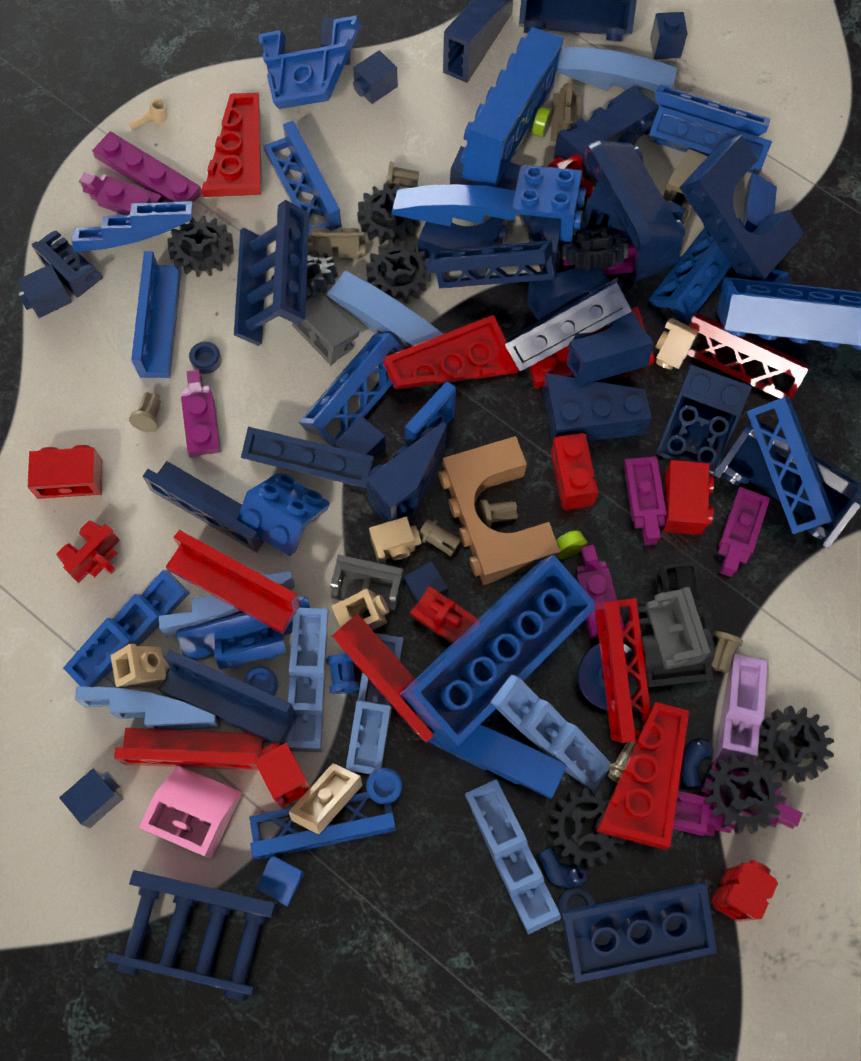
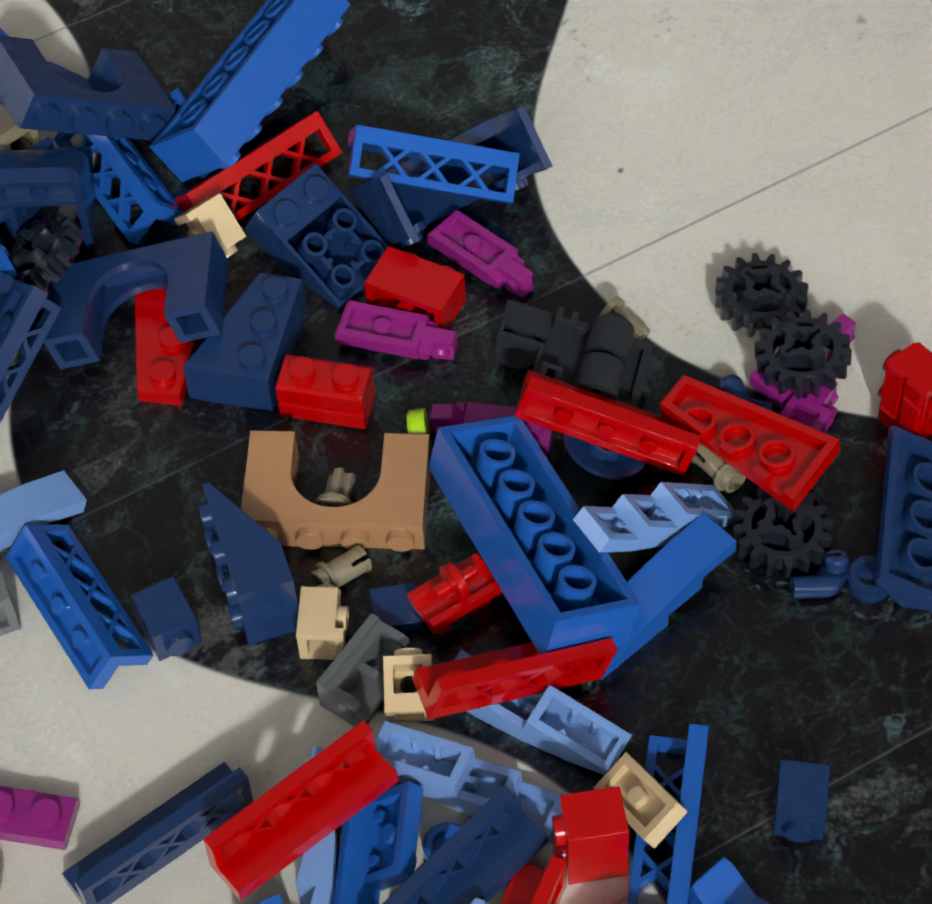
camera: 65 degrees left, 15 degrees down
(281, 510) = (219, 737): blue bracket -> none
(307, 457) = (158, 679): dark blue fence -> none
(342, 674) = (485, 737): blue bush -> none
(366, 911) = (801, 801): none -> dark blue brick
(384, 785) = (647, 731): blue tile -> none
(434, 412) = (180, 517): blue tile -> none
(456, 356) = (97, 467): red wing -> none
(512, 856) = (785, 624): medium blue slope -> none
(568, 324) = (129, 318): fence -> none
(677, 628) = (587, 336): dark grey hinge -> none
(742, 708) = (700, 330): lavender slope -> none

